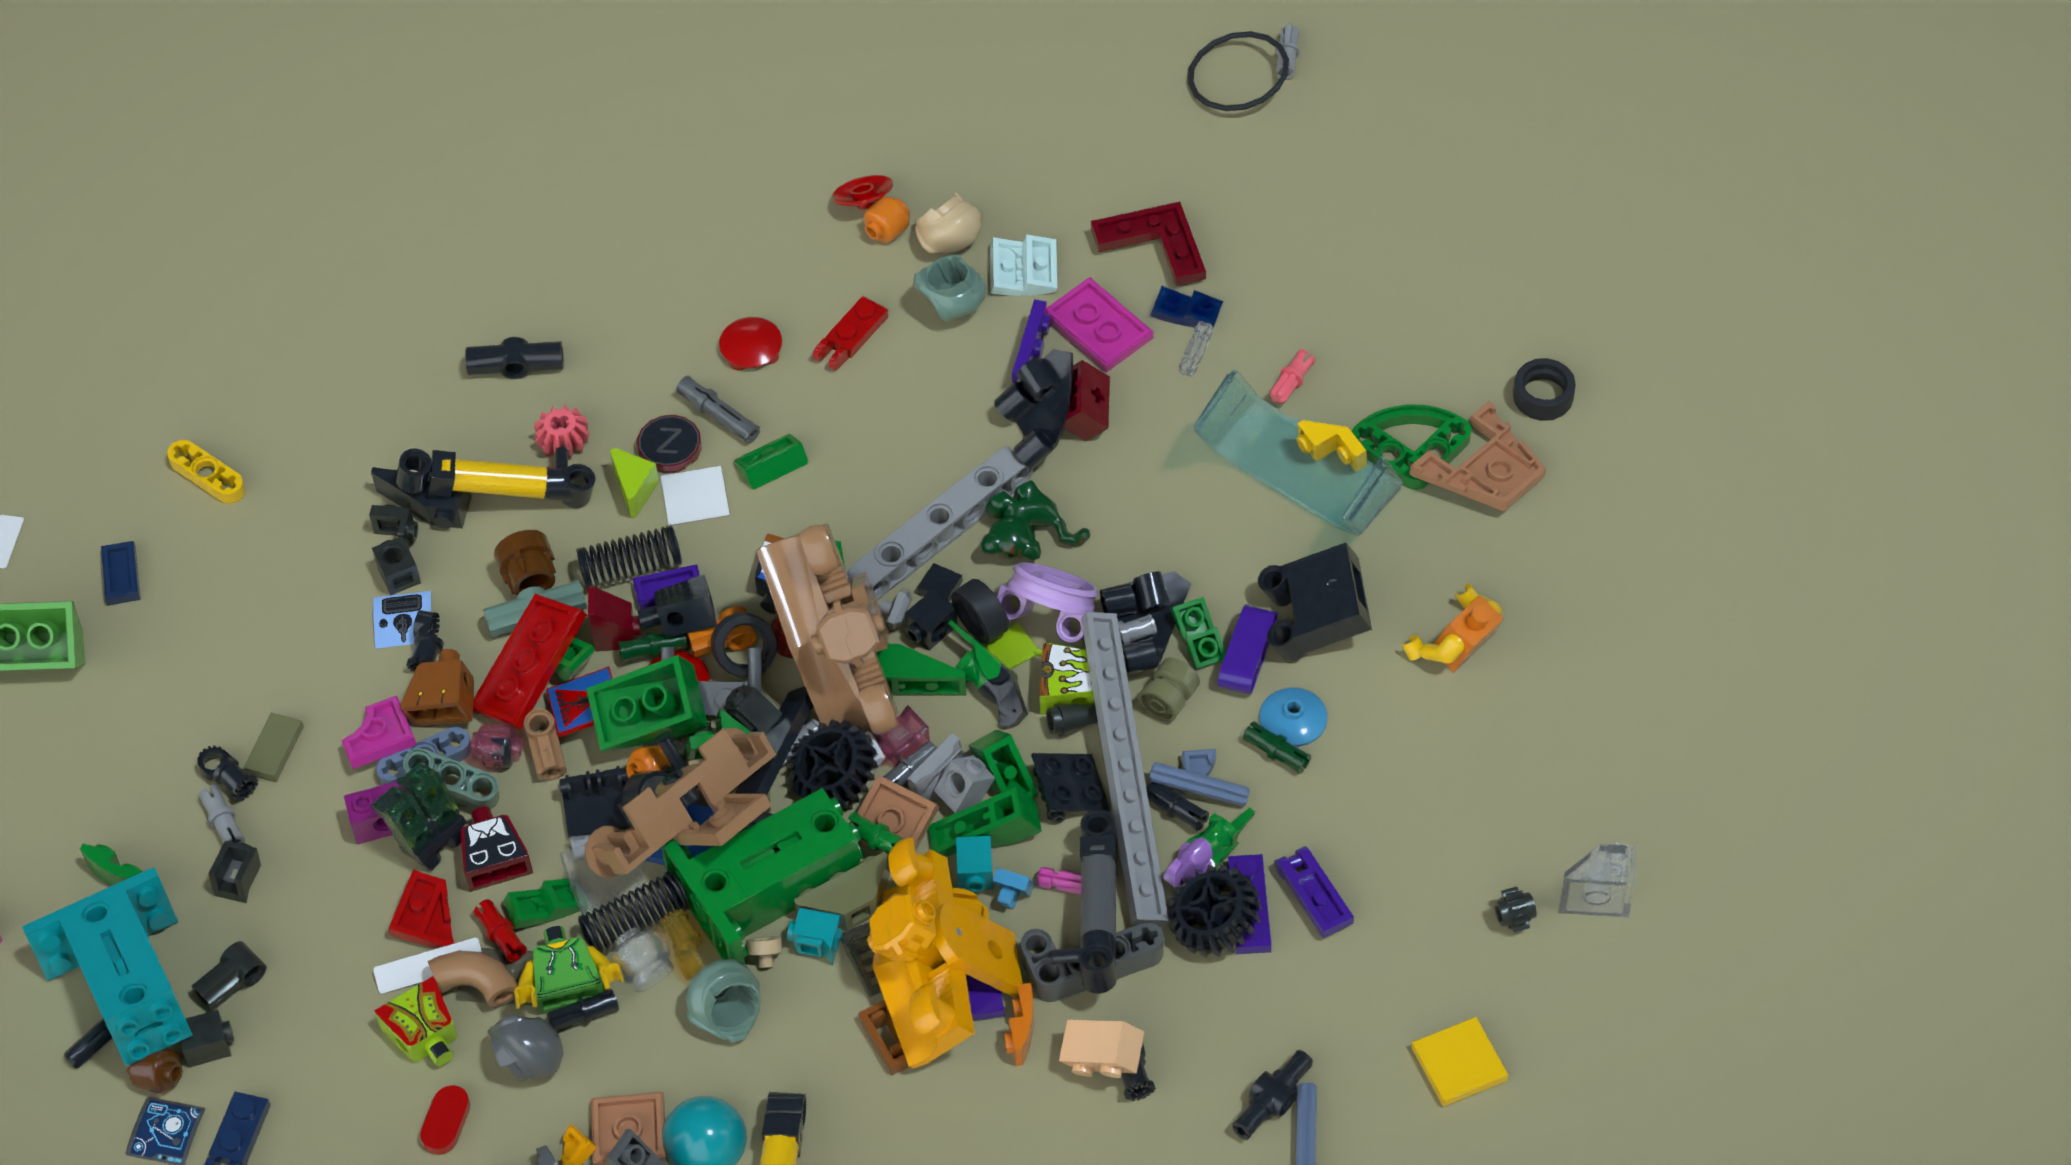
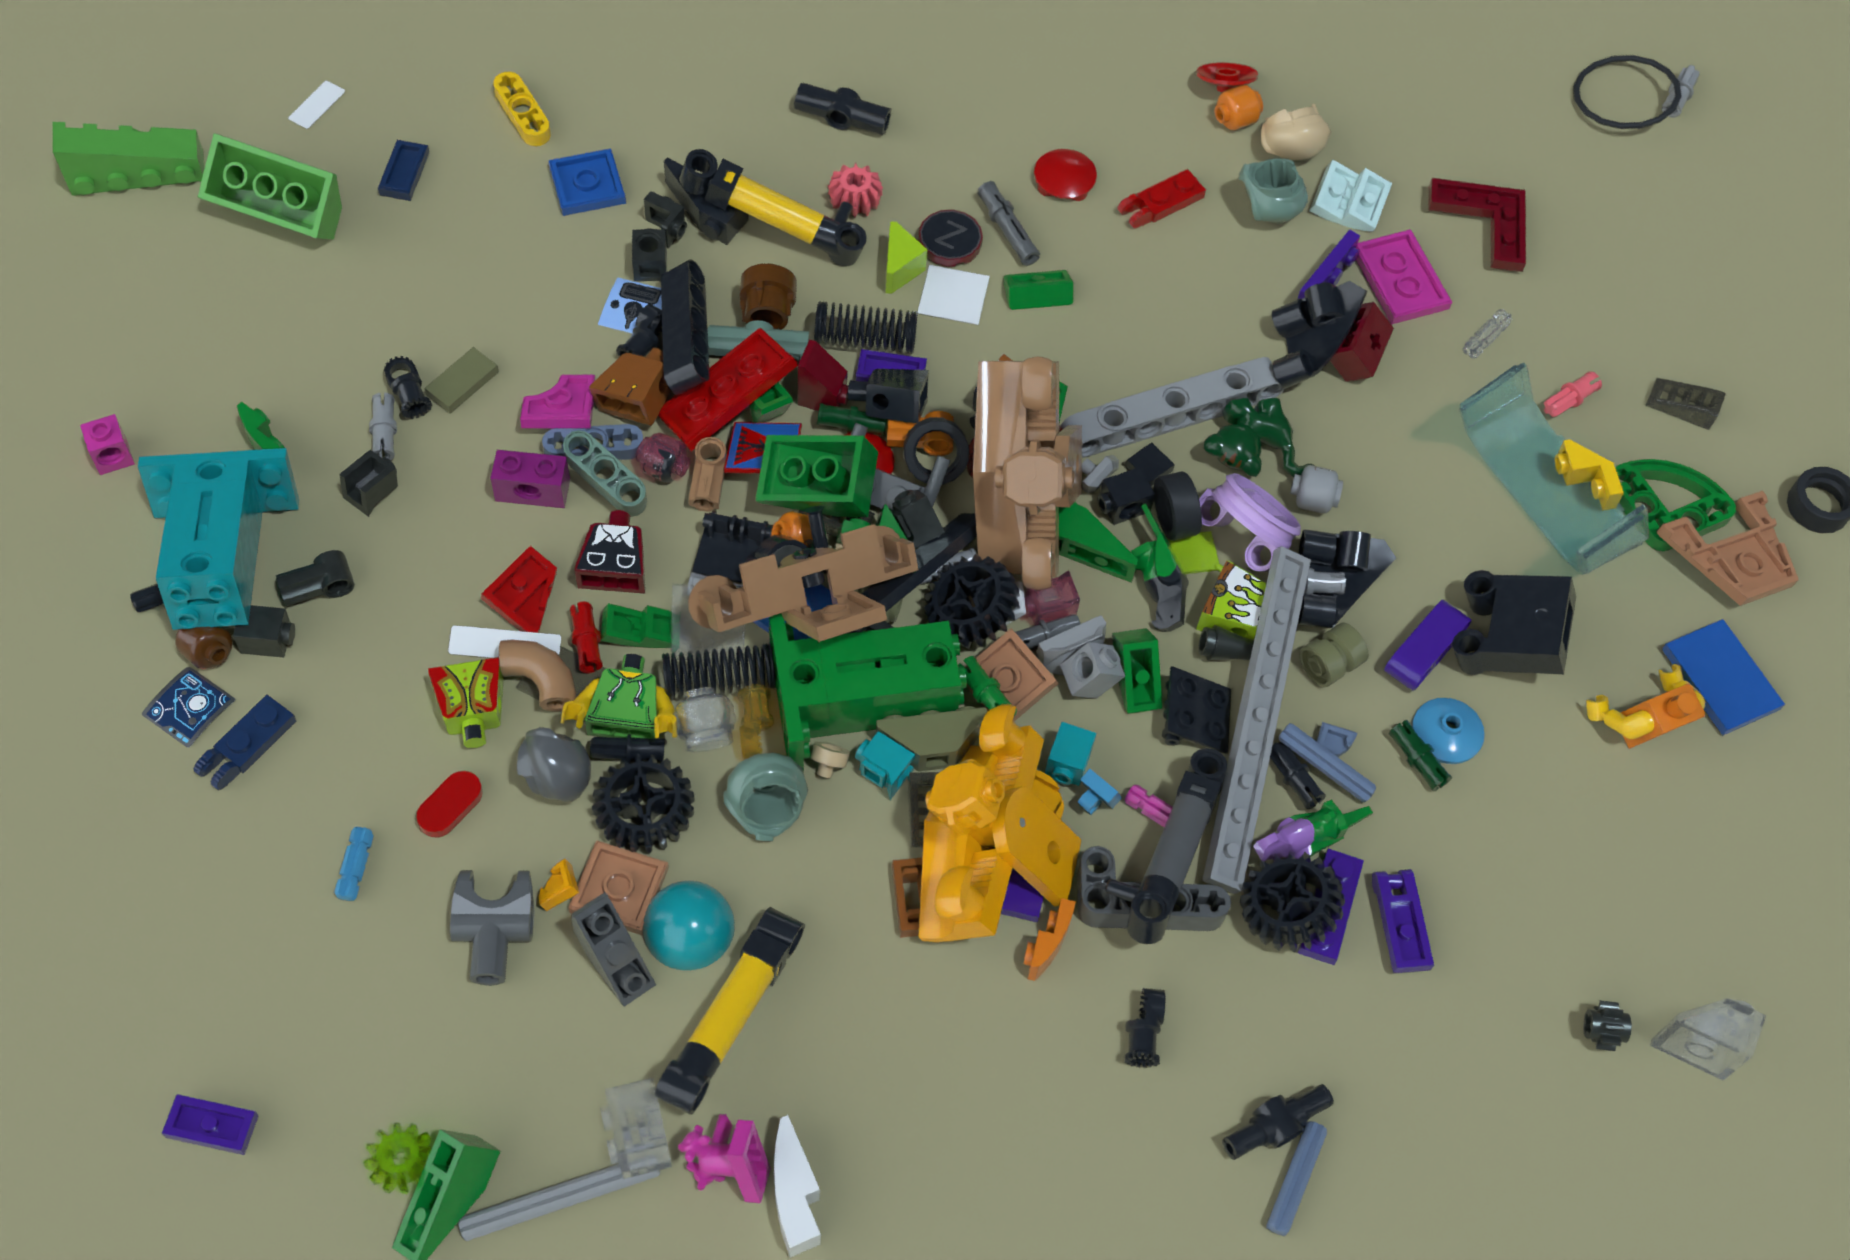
camera: 15 degrees right, 5 degrees up
(302, 518) = (587, 182): none -> blue tile
(421, 815) = (559, 511): clear green hips -> none
(463, 619) = (684, 327): none -> black beam
(610, 1068) = (676, 799): none -> black gear
(1004, 817) = (1116, 719): green slope -> none
(1097, 549) = (1317, 489): none -> light grey head
(1101, 1047) = (1120, 999): light nougat brick -> none
(1185, 310) = (1492, 294): clear blue slope -> none
(1198, 633) = (1385, 610): green slope -> none
(1404, 354) = (1706, 401): none -> clear smoke slope
(1459, 1061) = (1488, 1166): yellow tile -> none
(1511, 578) = (1725, 676): none -> blue tile

